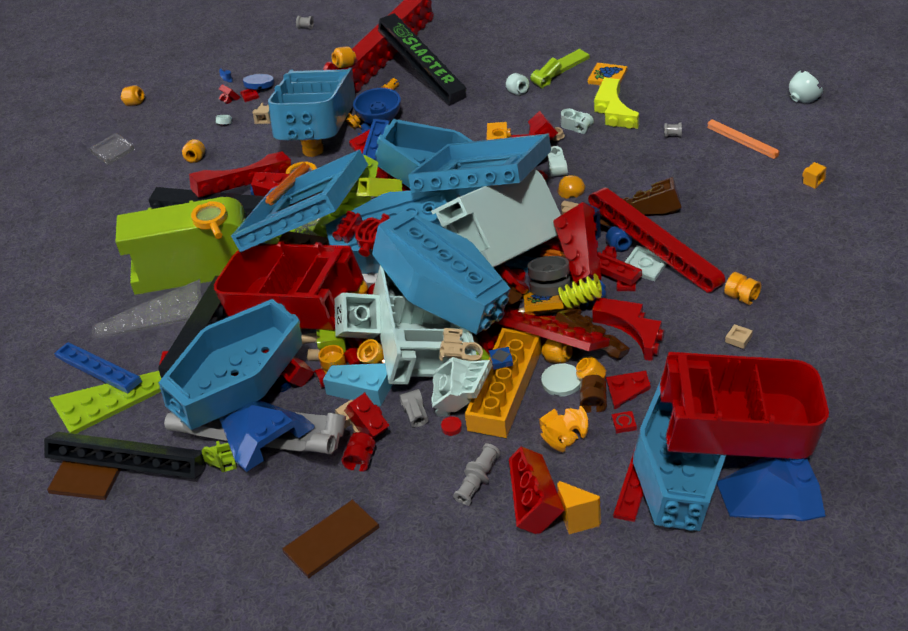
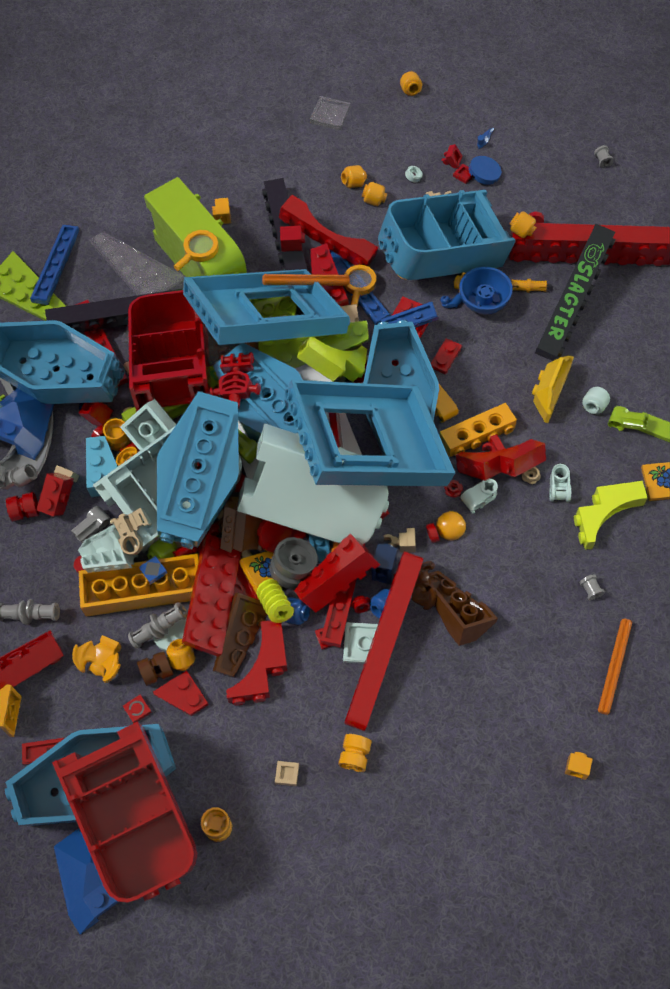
camera: 60 degrees right, 20 degrees up
(222, 144) = (374, 194): none -> light orange head
(230, 188) = (291, 238): none -> red brick
(490, 99) = (551, 385): none -> yellow wedge
(553, 377) = (158, 626): none -> light grey piece
(572, 195) = (432, 532): none -> red tile

